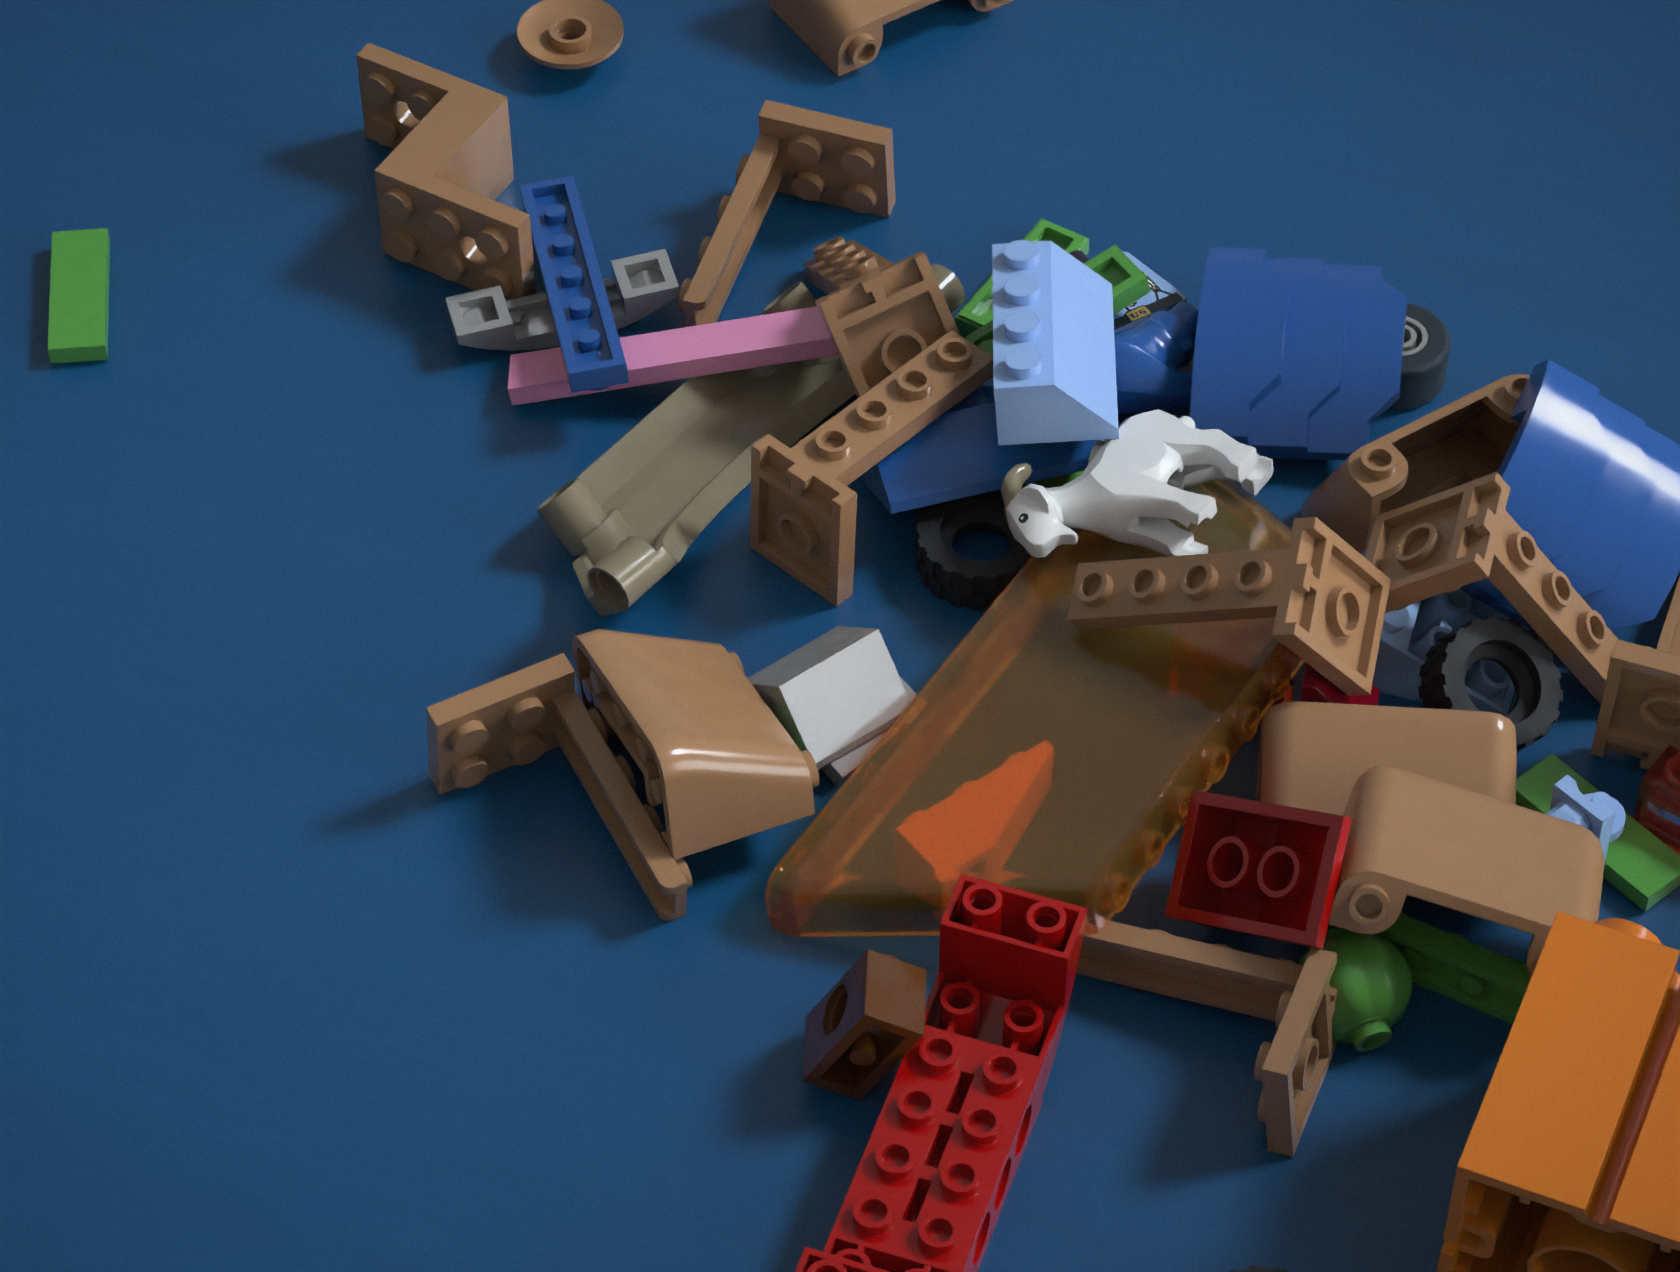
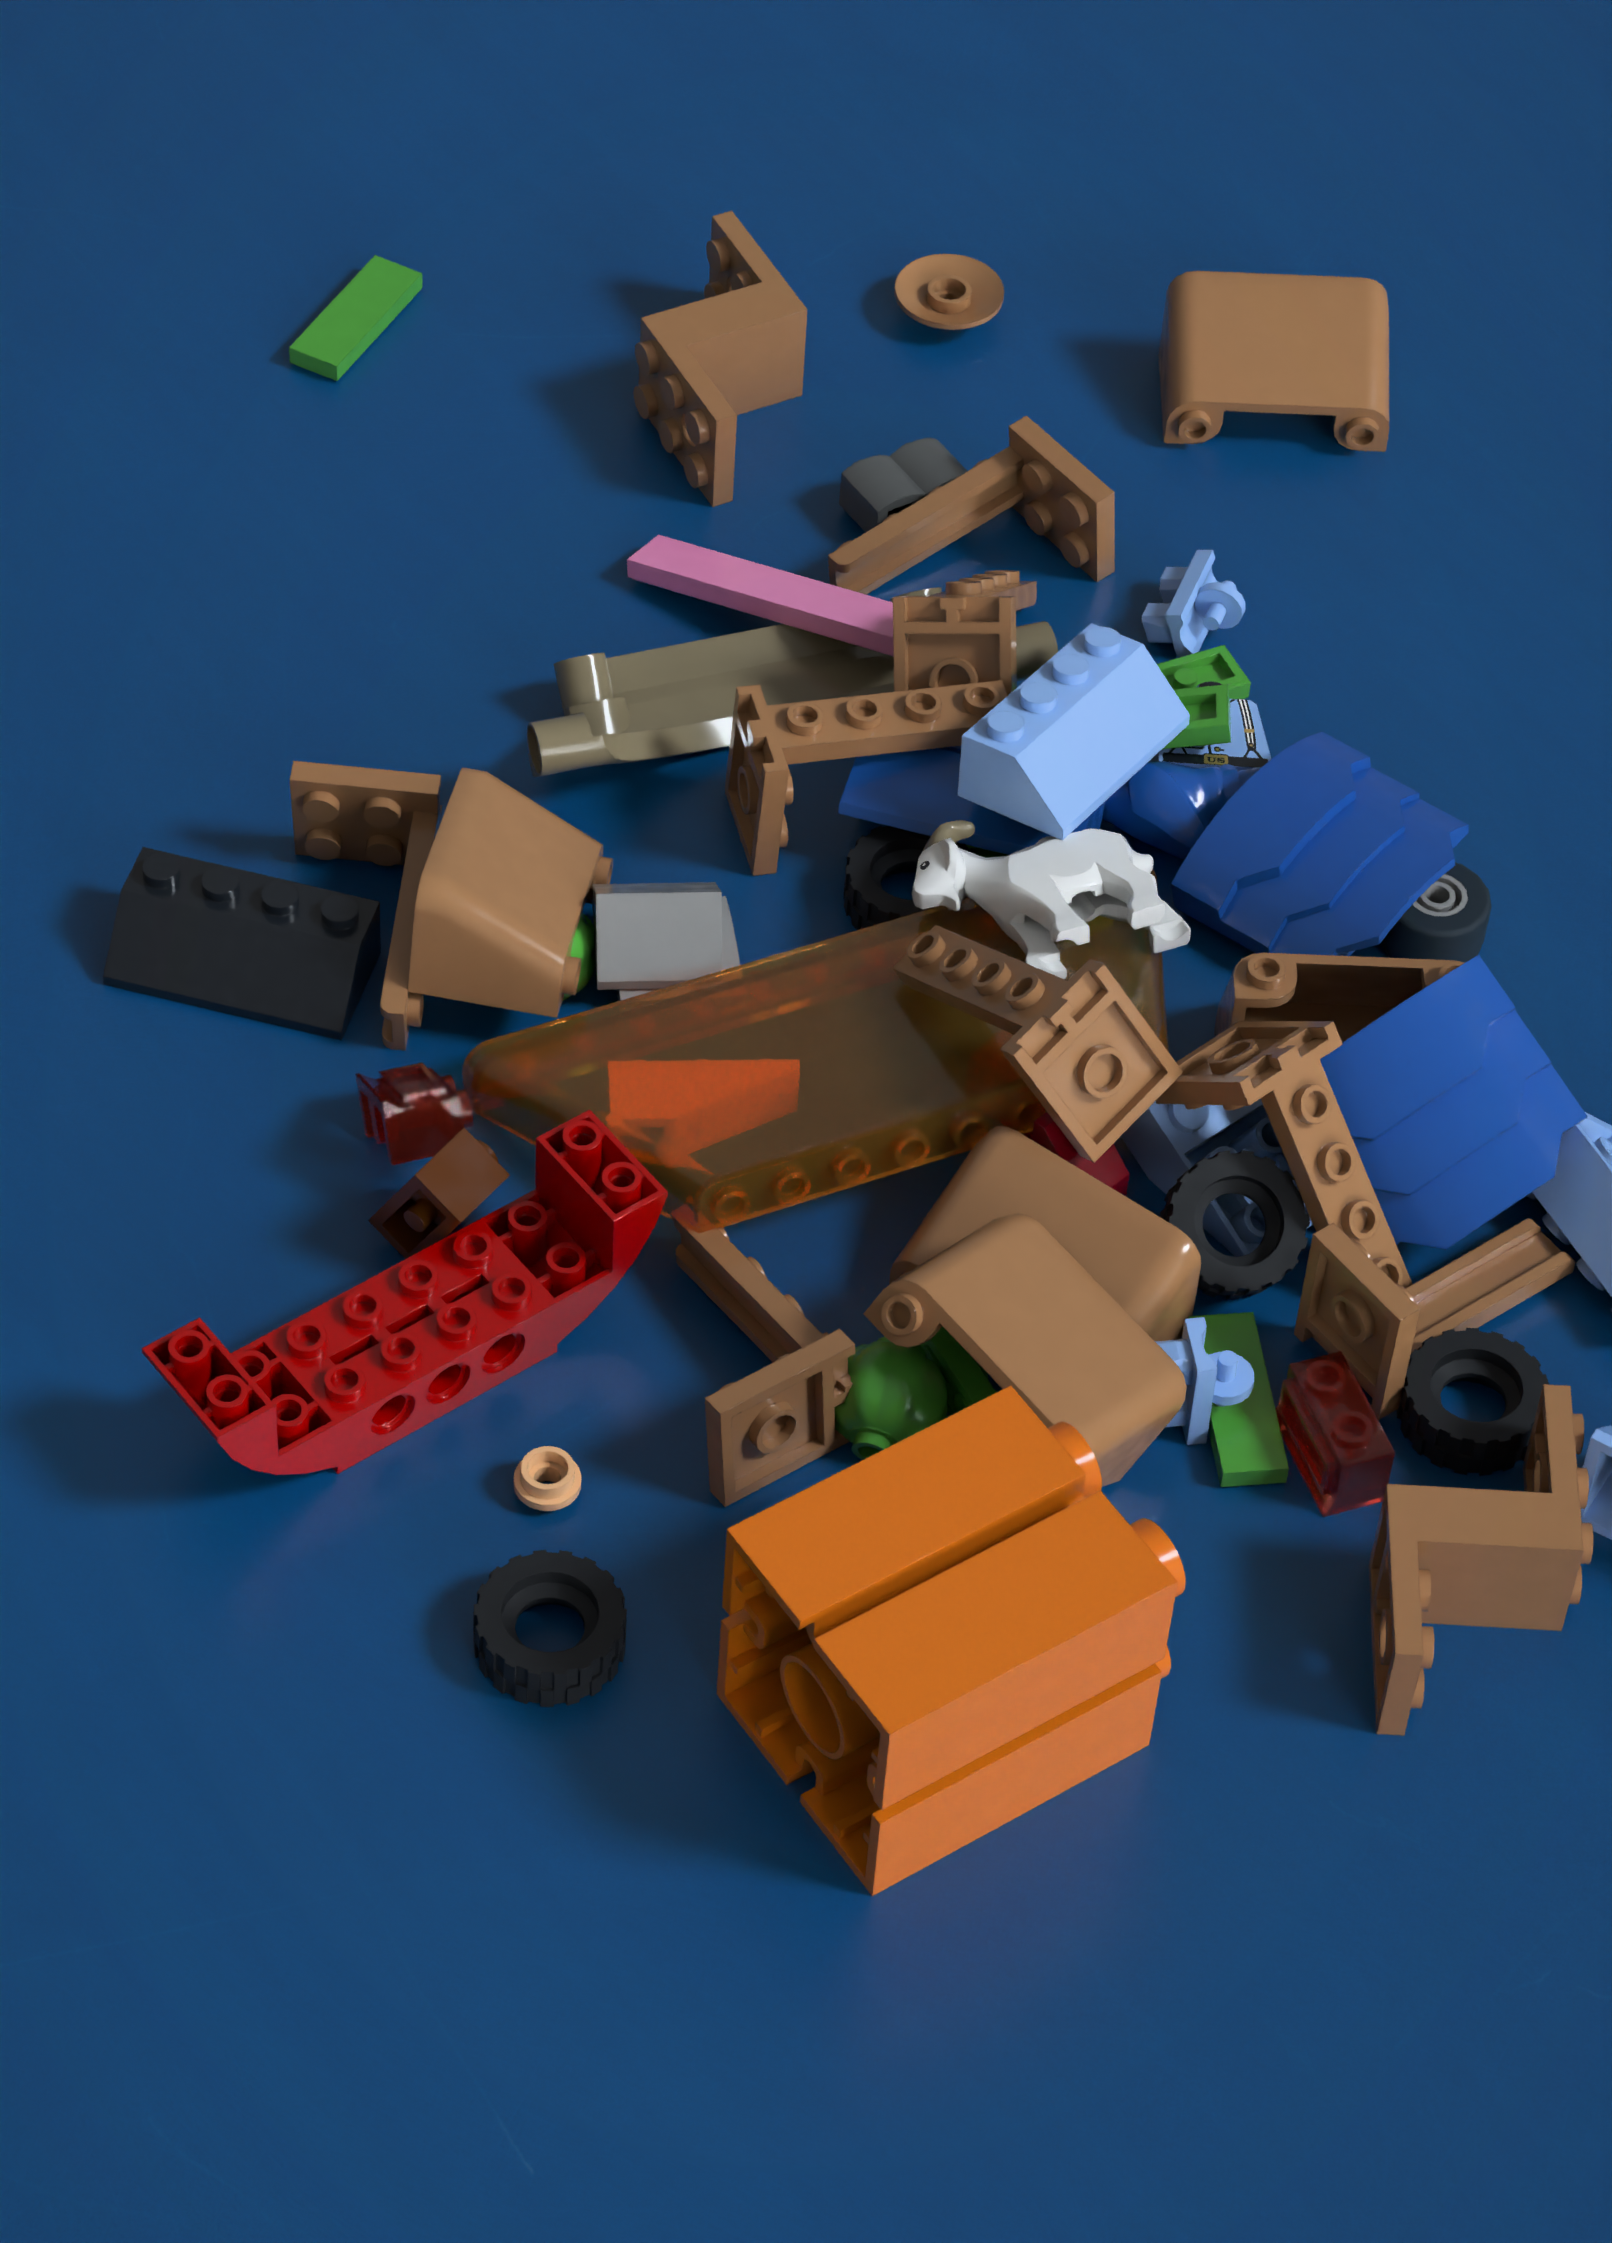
camera: 30 degrees right, 0 degrees up
(480, 897) = (243, 943): none -> black slope
(489, 322) = (730, 524): light grey slope -> none
(574, 285) = (750, 498): blue plate -> none
(678, 212) = (891, 483): none -> dark grey brick
(794, 955) = (412, 1111): none -> clear red window
(1014, 188) = (1192, 606): none -> light blue hips
(1147, 1204) = (551, 1465): none -> light nougat plate
(1258, 868) = (855, 1241): red slope -> none

